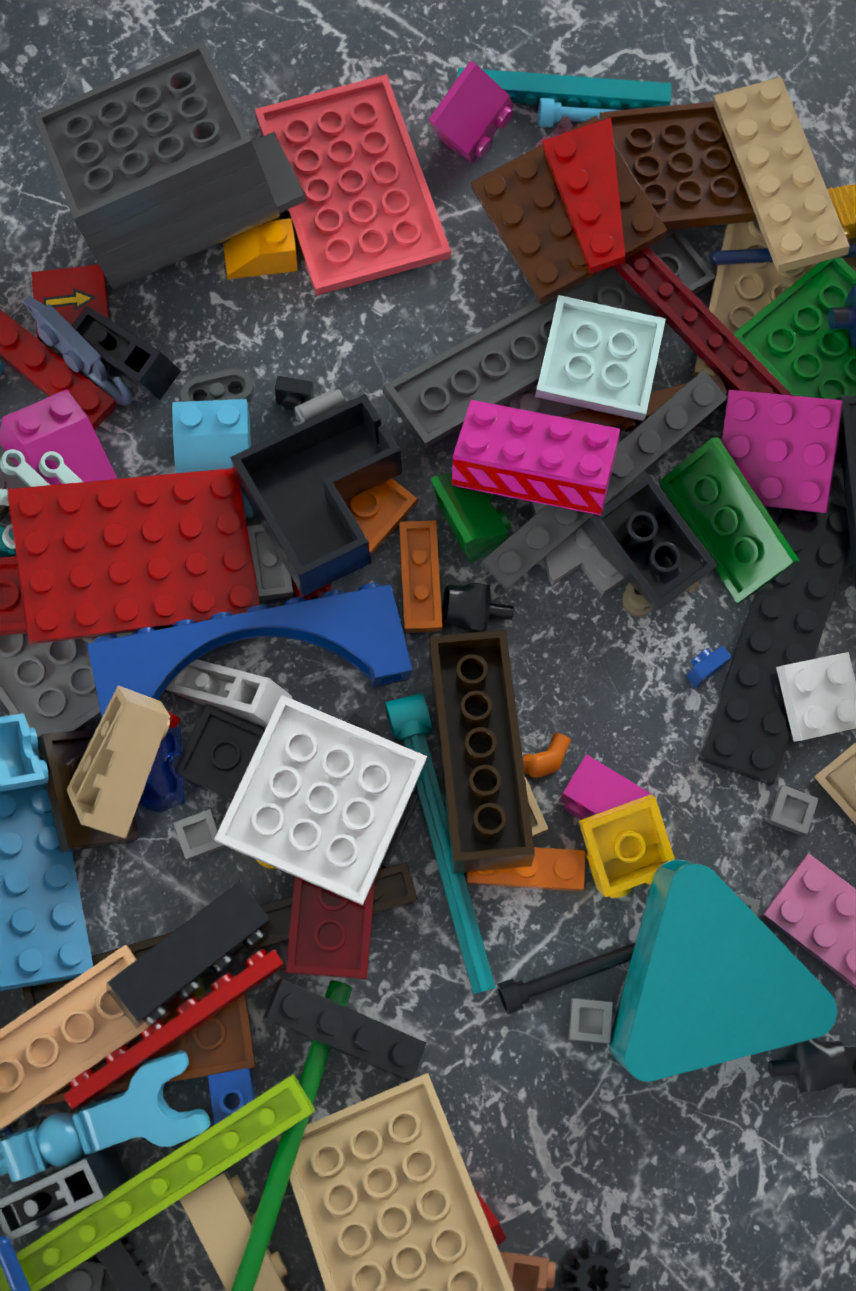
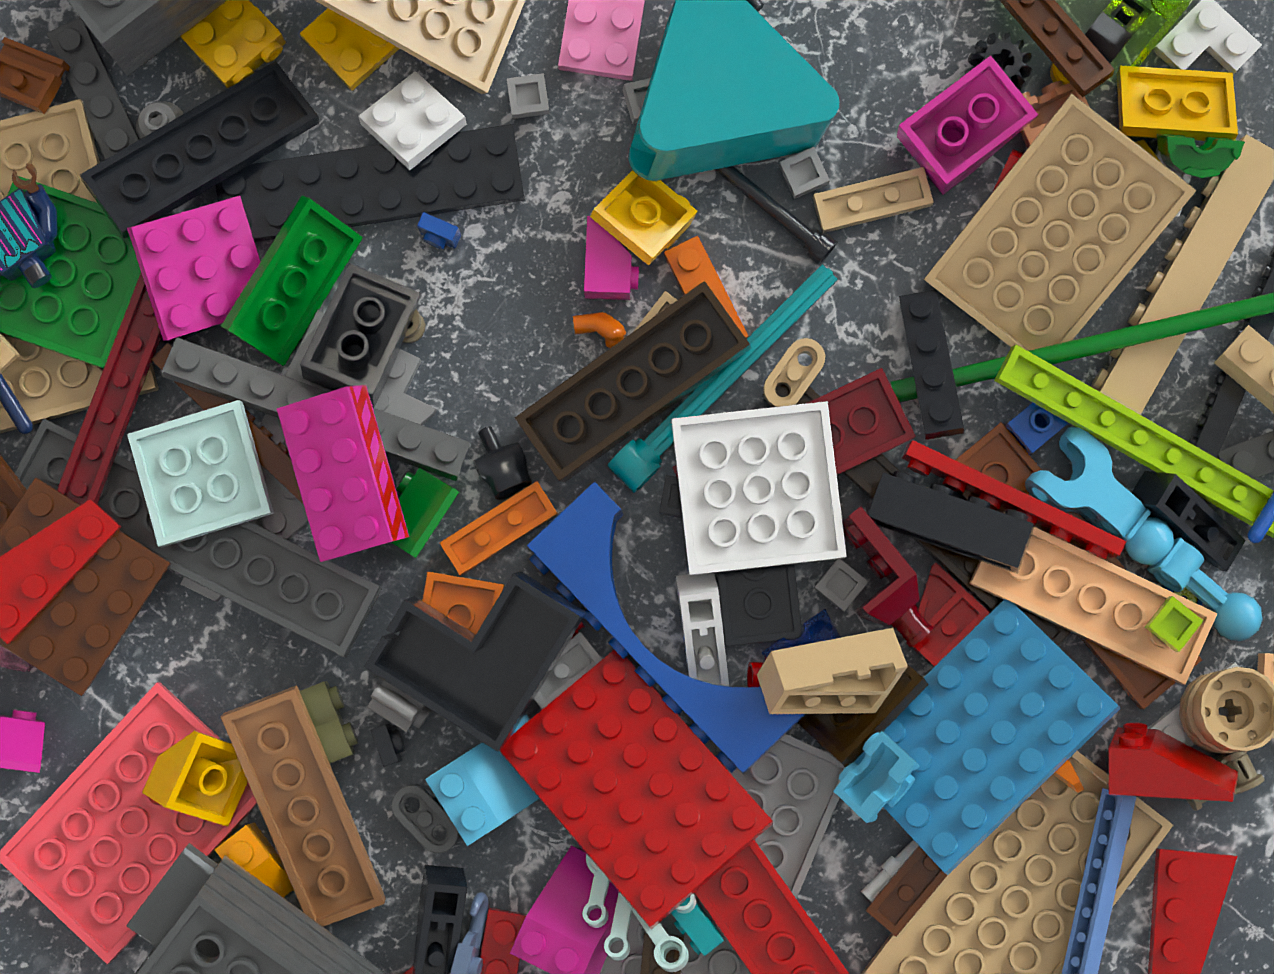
camera: 115 degrees left, 10 degrees up
(114, 910) = (950, 613): none -> red wing
(154, 870) = (897, 599): none -> dark red plate
(283, 299) = (303, 807): none -> medium nougat plate
(342, 351) = (323, 707): none -> olive brick
(351, 236) = (198, 778): none -> yellow slope
(407, 897) = (792, 374): none -> tan plate
(529, 1071) = (873, 200): none -> tan plate
(553, 1202) = (966, 124): none -> dark pink slope

